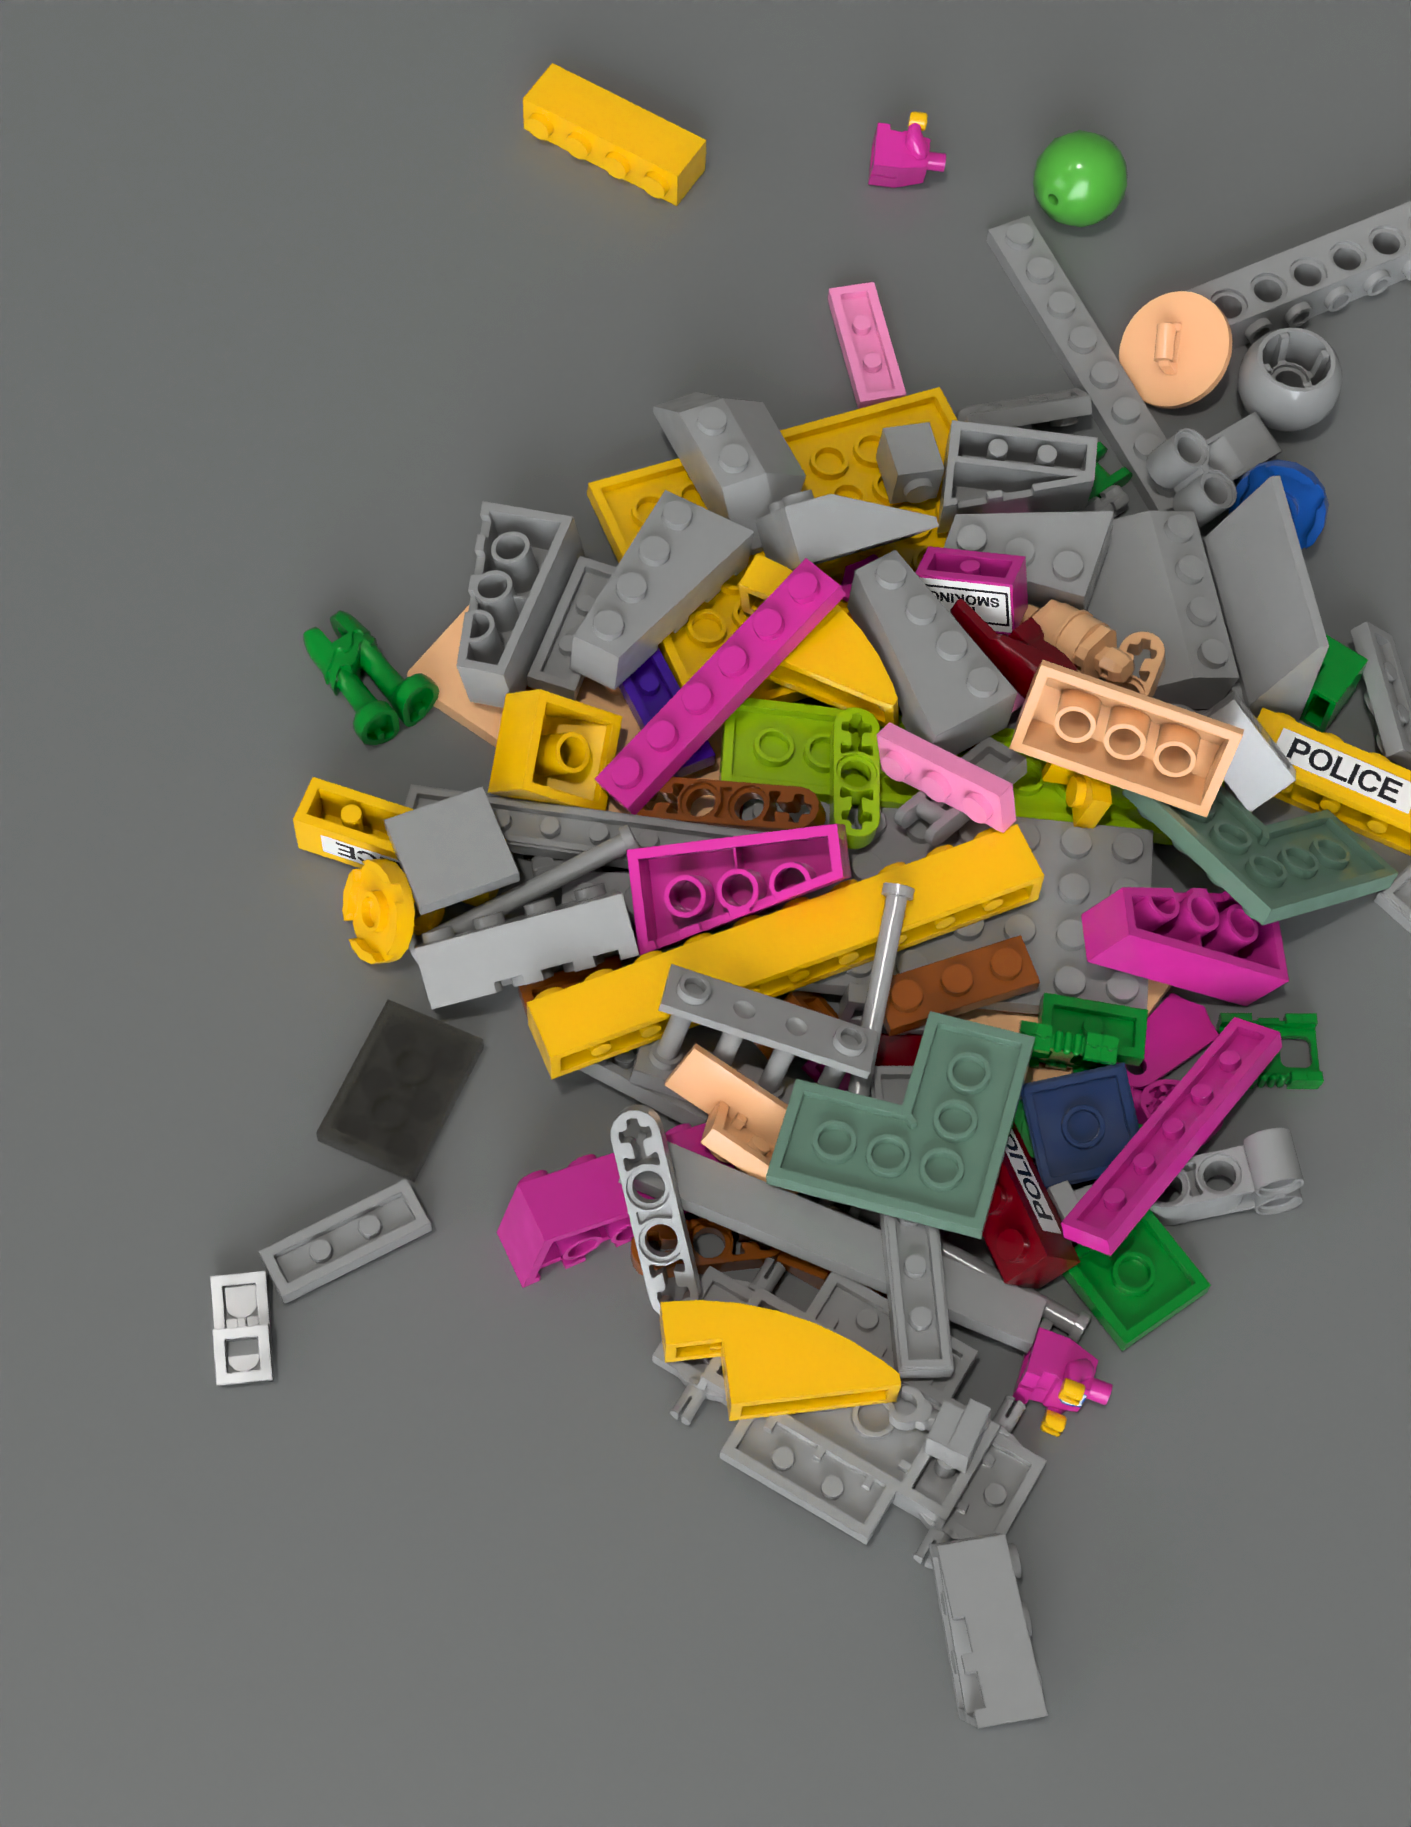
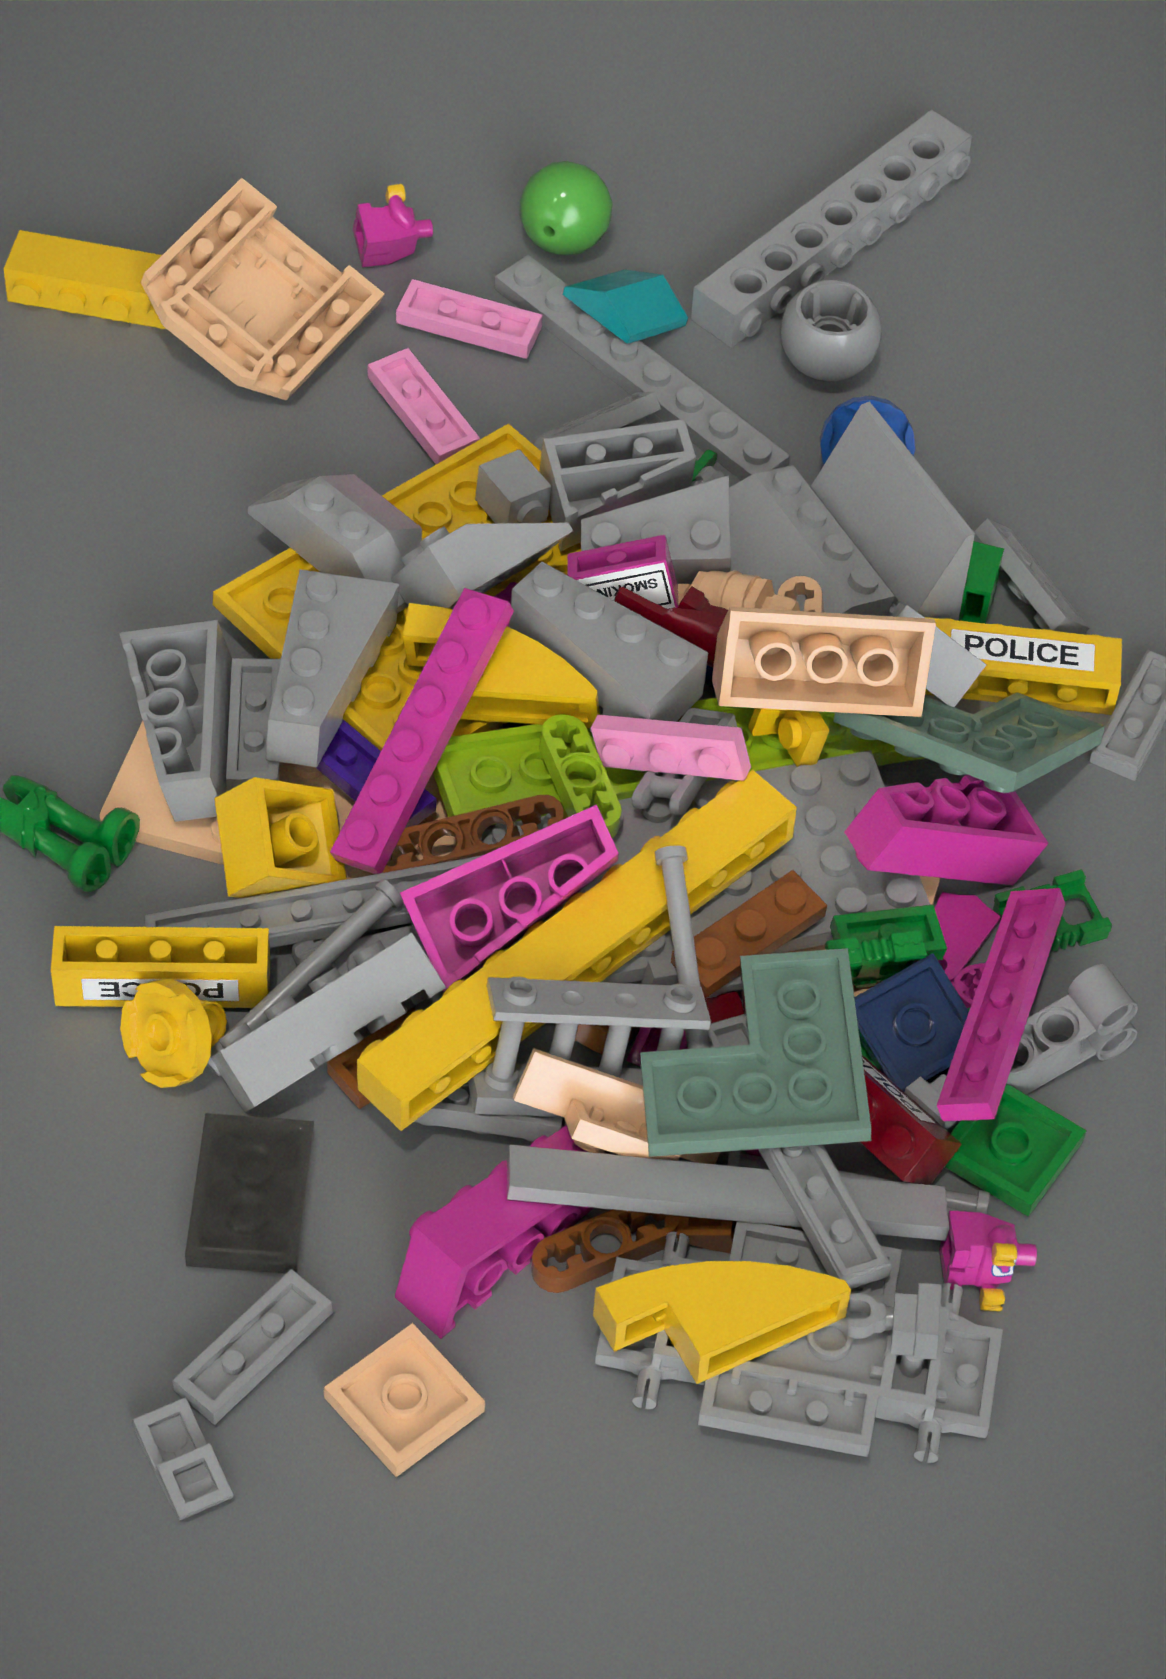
camera: 20 degrees left, 10 degrees down
(451, 850) = (222, 950): light grey tile -> none
(461, 1339) = (404, 1399): none -> light nougat plate
(650, 1212) = (550, 1214): light grey beam -> none
(747, 189) = (256, 295): none -> light nougat wedge
(946, 267) = (469, 318): none -> bright pink plate
(987, 1631) = (1013, 1490): light grey wedge -> none
(1101, 291) = (629, 303): none -> teal slope
(1176, 349) = (716, 332): light nougat shield -> none
(1206, 470) = (790, 425): light grey piece -> none

